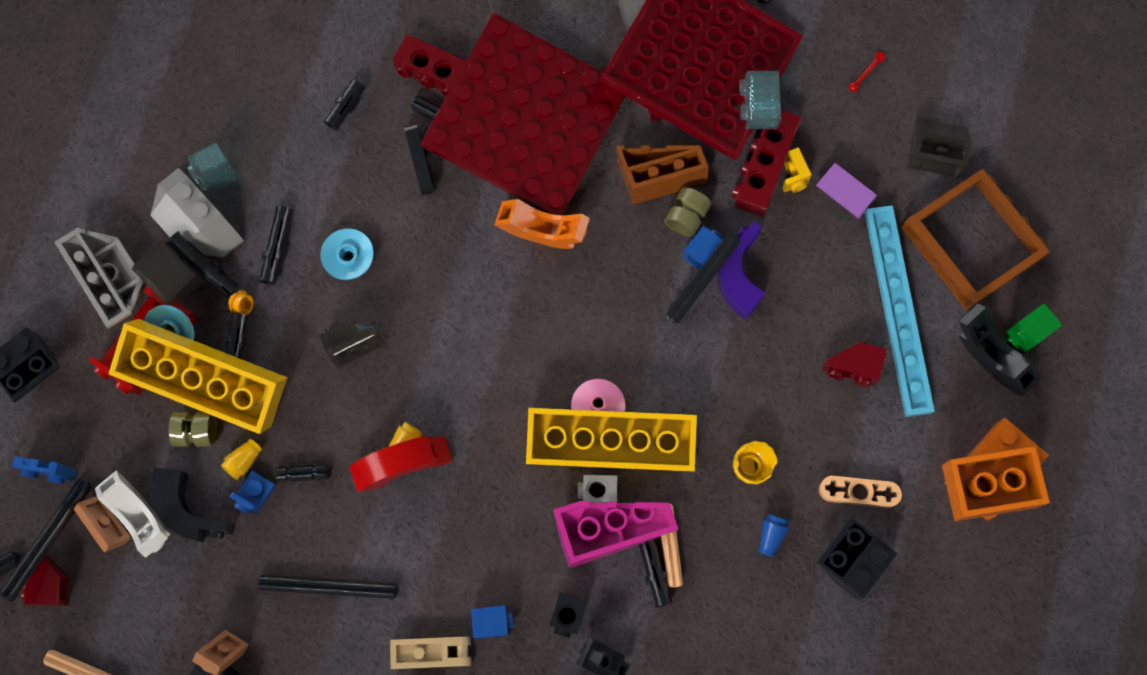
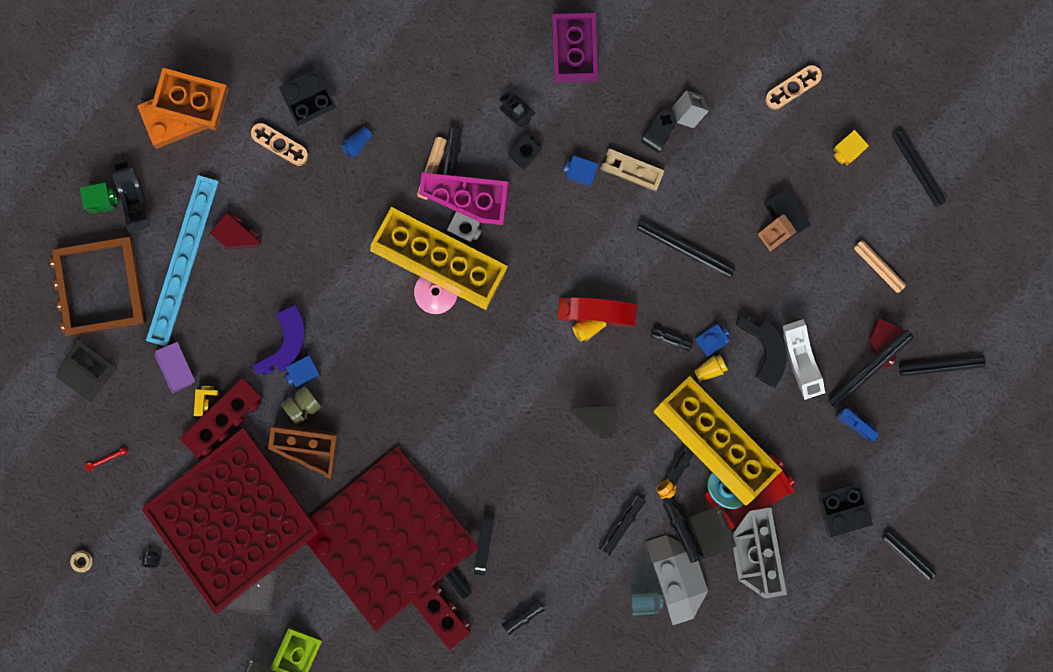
camera: 160 degrees left, 10 degrees up
(102, 524) = (829, 365): nougat plate -> none
(190, 429) = (731, 401): olive wheel -> none
(340, 244) = (581, 484): medium azure dish -> none
(541, 227) = (414, 444): orange arch -> none
(703, 277) = (315, 347): black axle -> none
(744, 462) = (352, 197): yellow hair -> none
(761, 99) = (204, 462): clear light blue brick -> none

